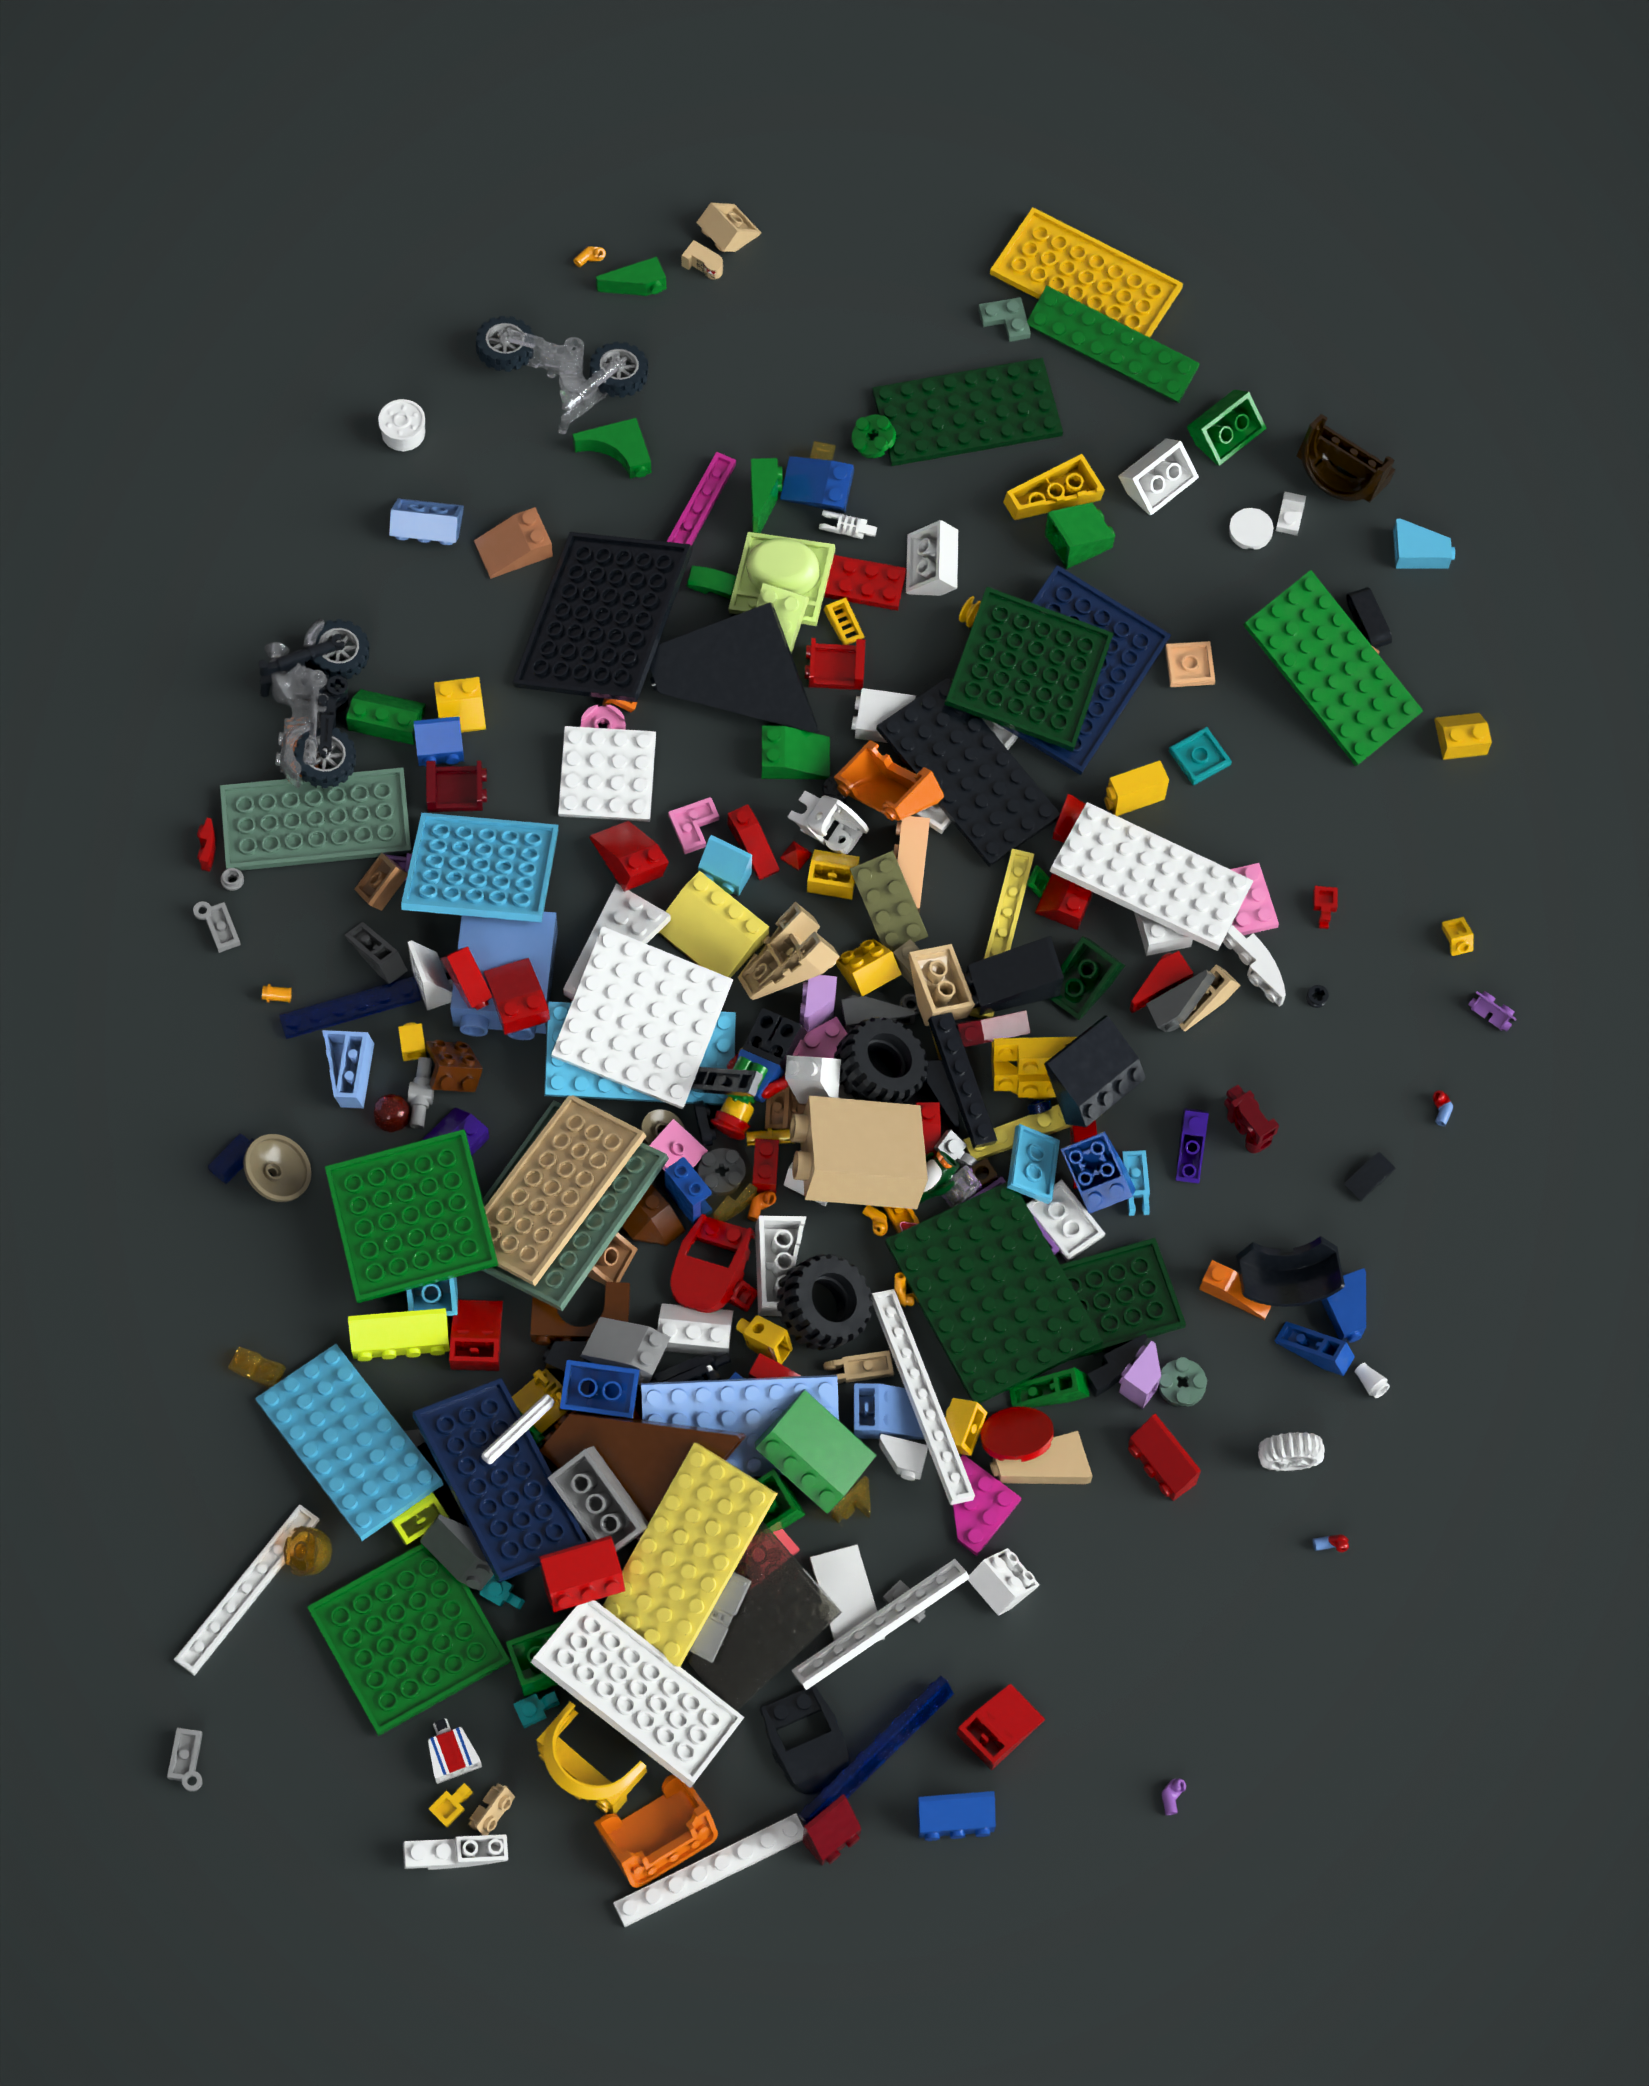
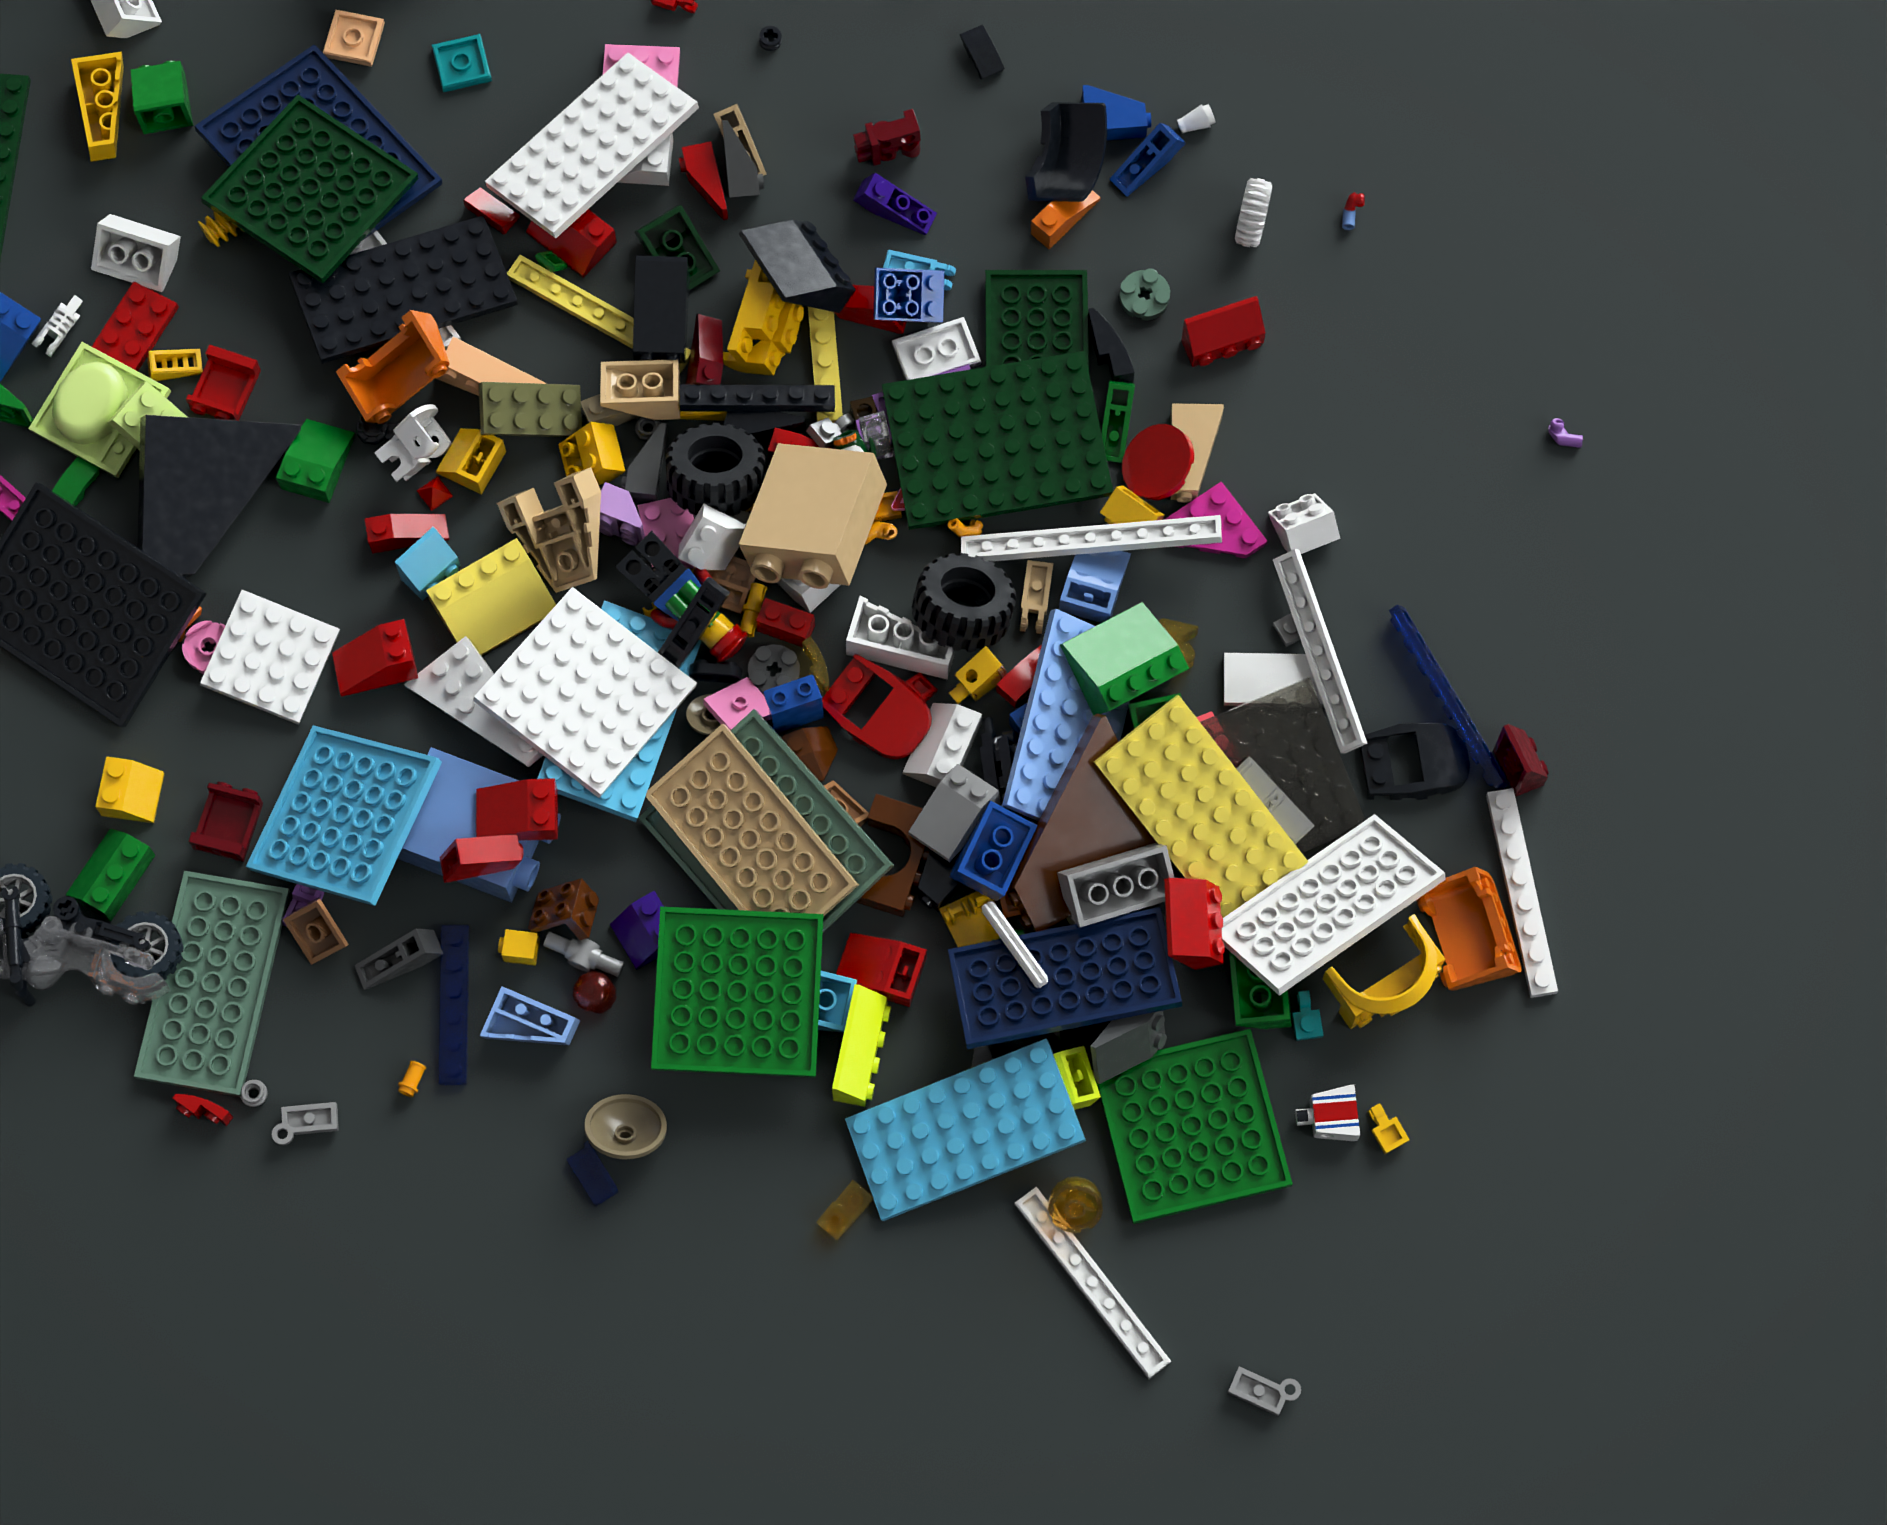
camera: 70 degrees left, 5 degrees up
(430, 976) = (453, 906): white slope -> none
(439, 741) = (169, 822): slope -> none
(456, 1852) = (1439, 1137): white slope -> none
(486, 1819) = (1396, 1082): tan hinge -> none
(501, 1592) = (1174, 1019): teal plate -> none
(688, 821) = (357, 591): bright pink plate -> none
(759, 1203) = (821, 638): orange arm -> none
(874, 708) = (297, 359): white brick -> none
(904, 1456) = (1145, 579): white slope -> none
(956, 1815) = (1534, 638): blue slope -> none
(999, 1726) = (1454, 572): red slope -> none
(1033, 1163) = (870, 359): medium azure tile -> none
(1039, 1106) = (806, 336): tile -> none
(1136, 788) = (484, 130): yellow brick -> none
(1142, 1378) = (1134, 323): lavender slope -> none
(1262, 969) = (725, 76): white slope -> none

